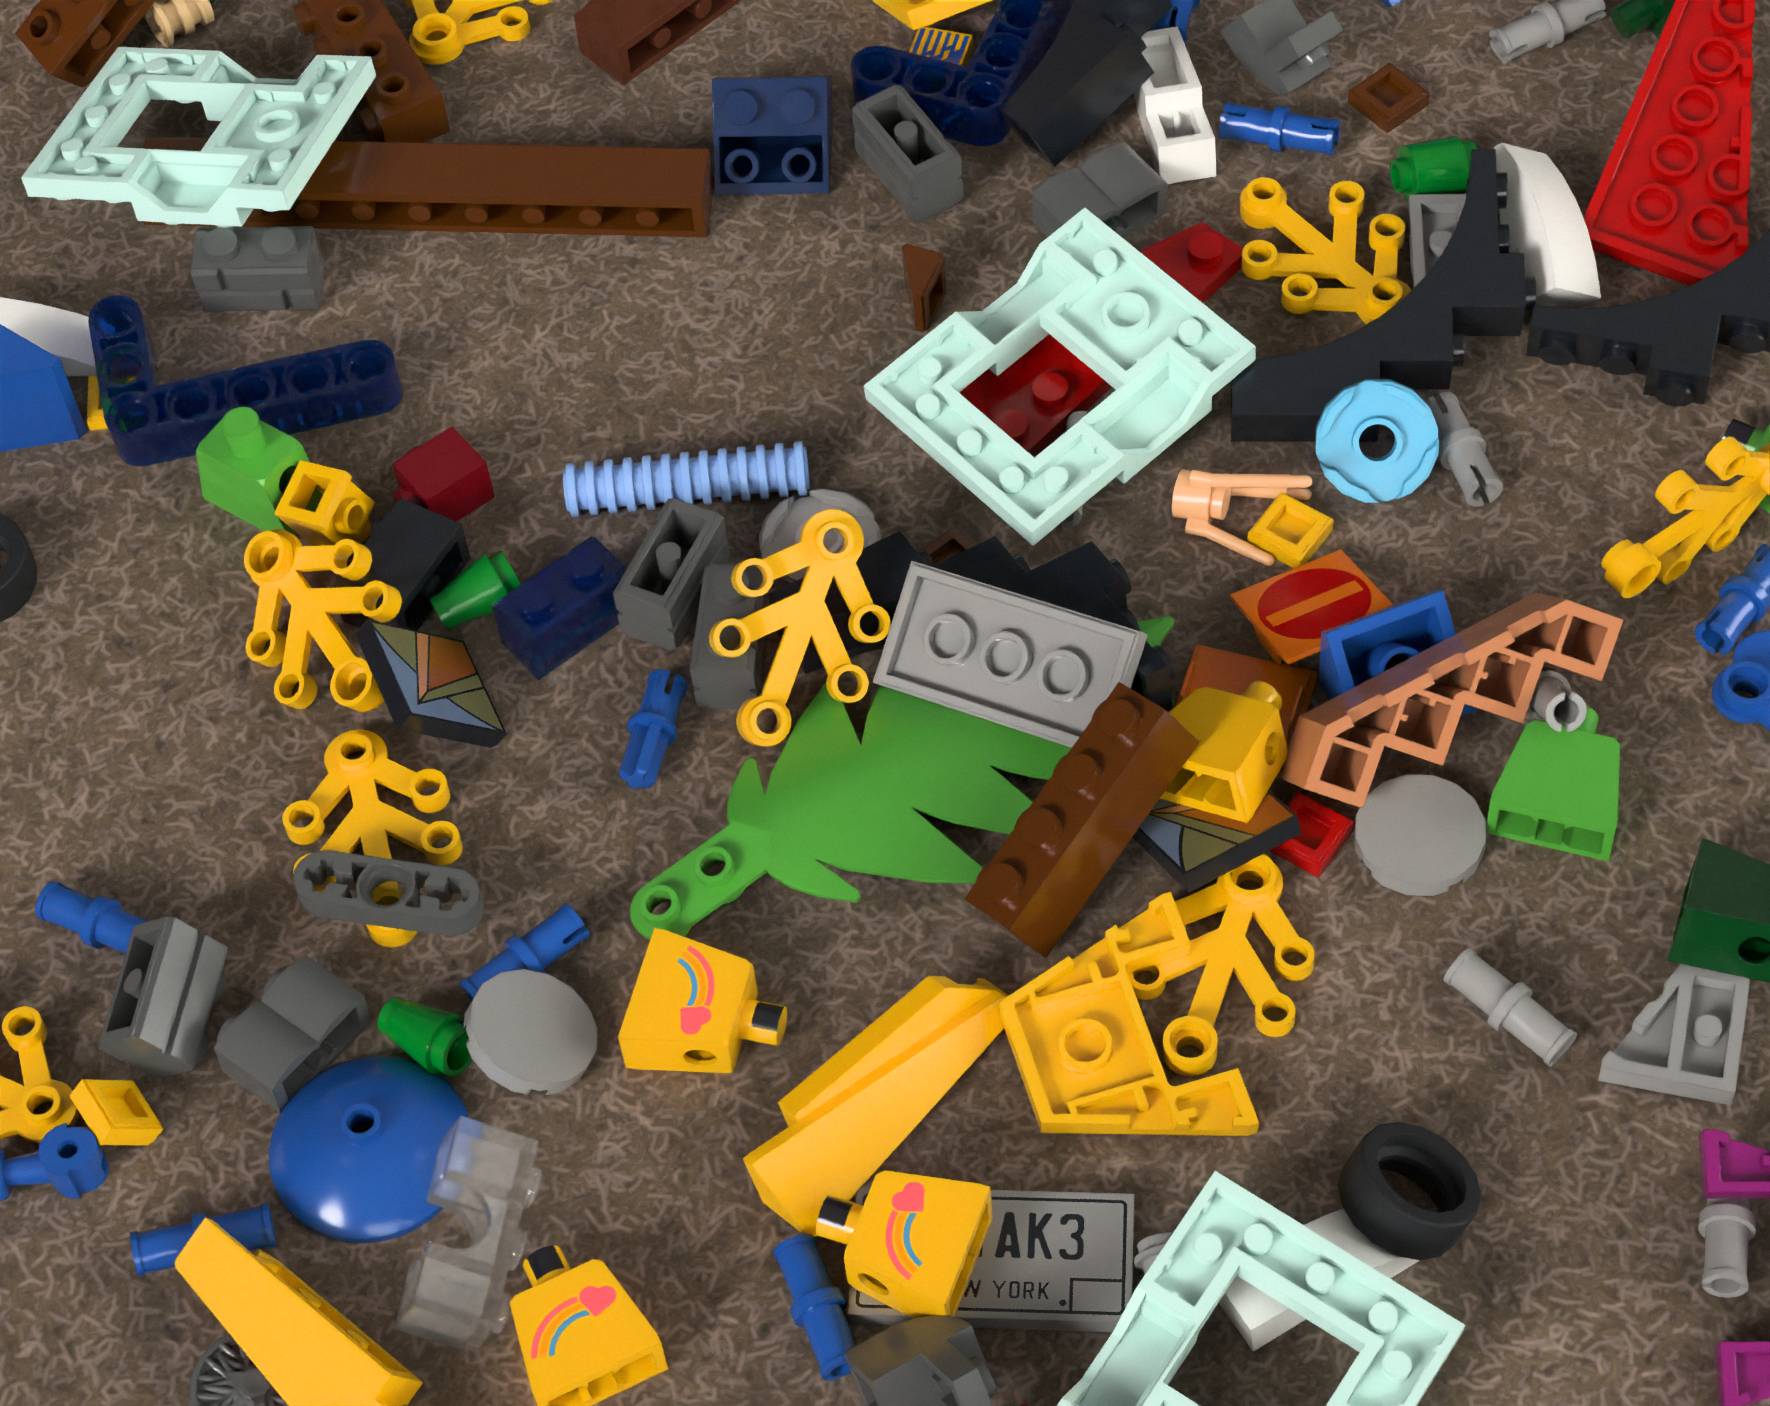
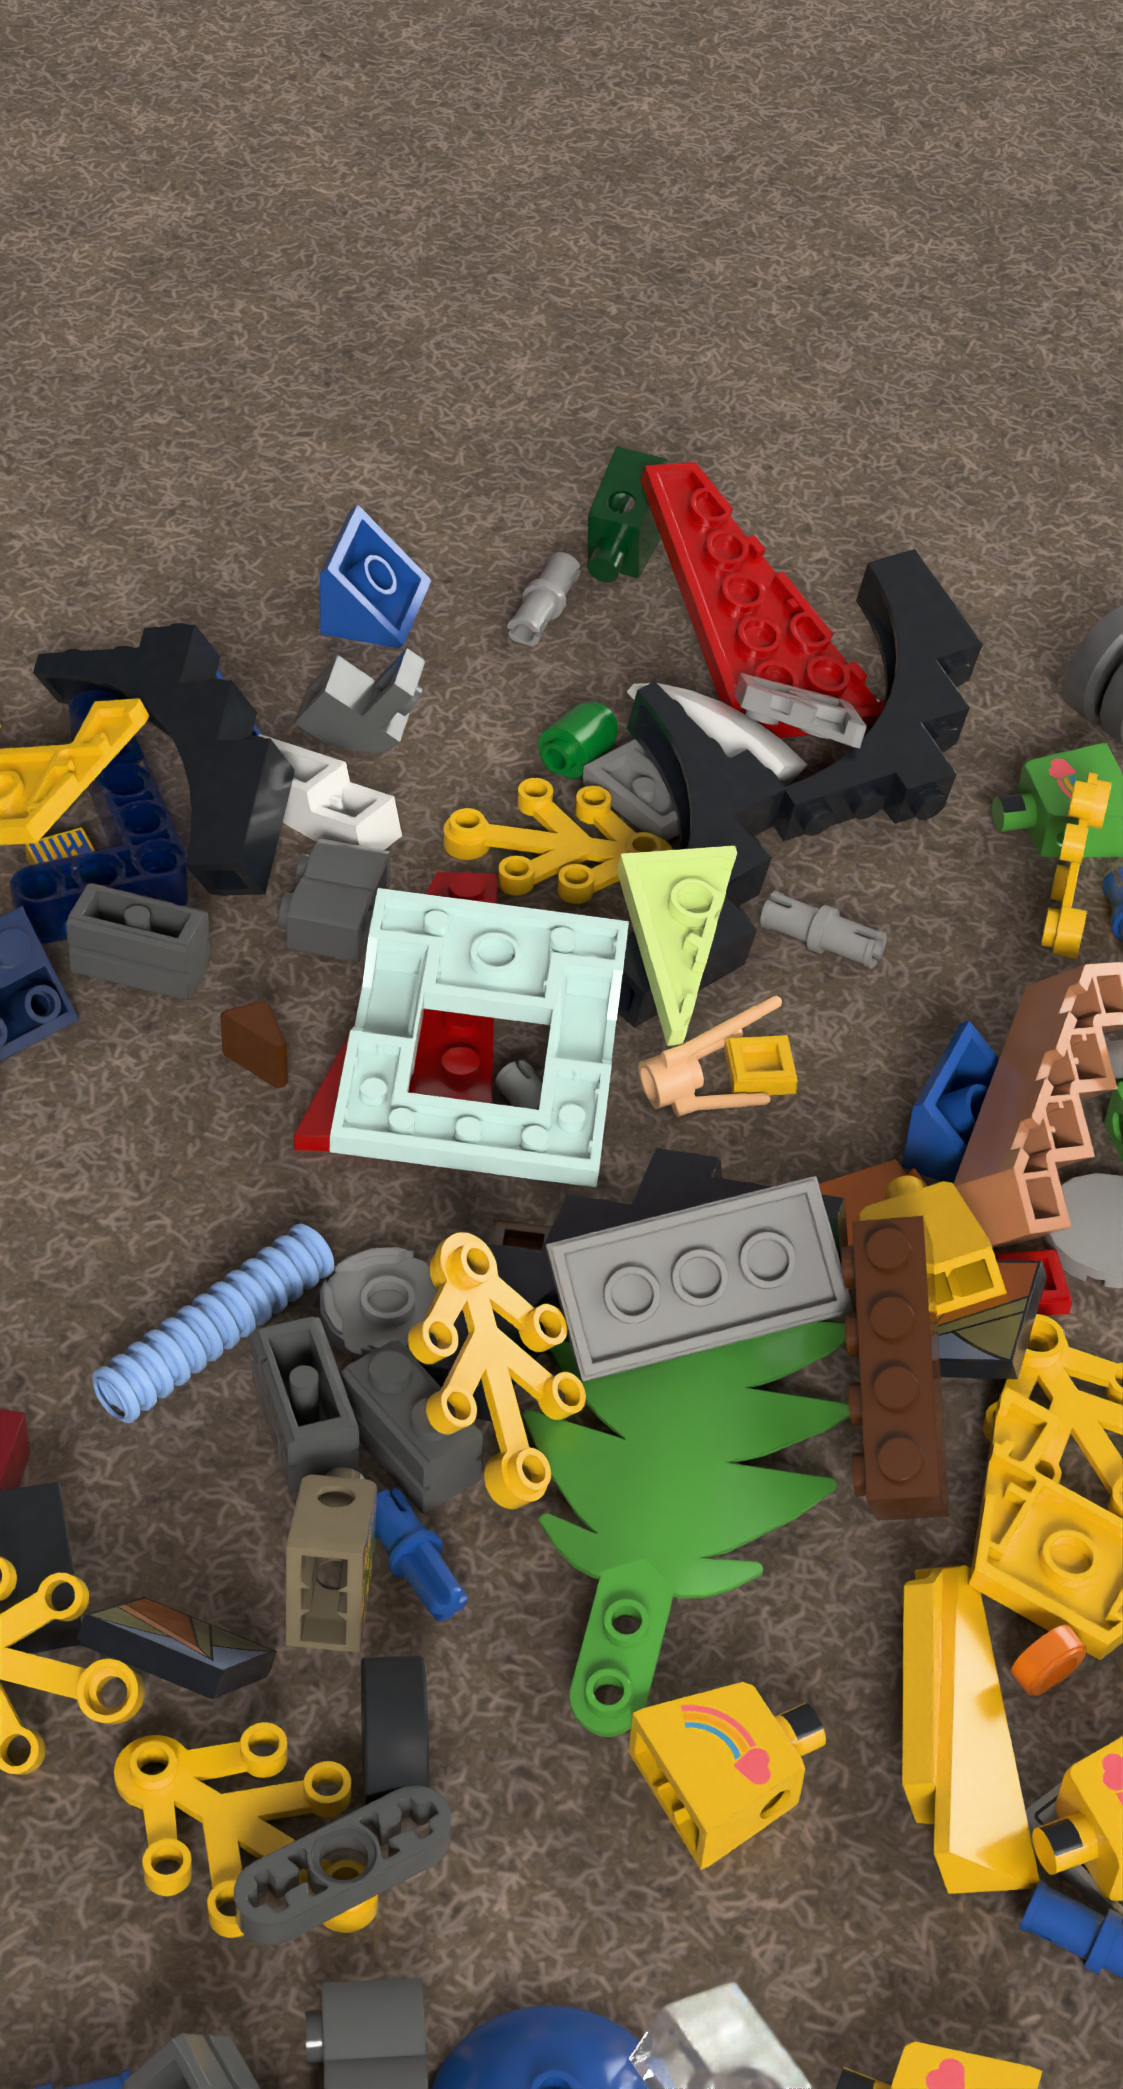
camera: 50 degrees left, 10 degrees down
(427, 1035) = (504, 1973): green cone -> none
(475, 590) = (119, 1537): green cone -> none
(501, 830) = (394, 1724): none -> black tyre
(530, 1032) = (606, 1894): light grey tile -> none
(533, 950) = (519, 1838): blue pin -> none
(561, 608) = (226, 1498): clear blue brick -> none
(583, 690) = (330, 1523): none -> dark tan torso
(991, 1103) = (1049, 1660): none -> orange tile
(1279, 128) = (425, 770): blue pin -> none
(1306, 360) = (674, 915): none -> yellowish green wing
(1306, 600) = (854, 1108): piece -> none
(1371, 404) = (740, 950): medium azure tile -> none
(1388, 97) = (476, 710): reddish brown tile -> none
(1629, 244) = (807, 710): none -> light grey wing

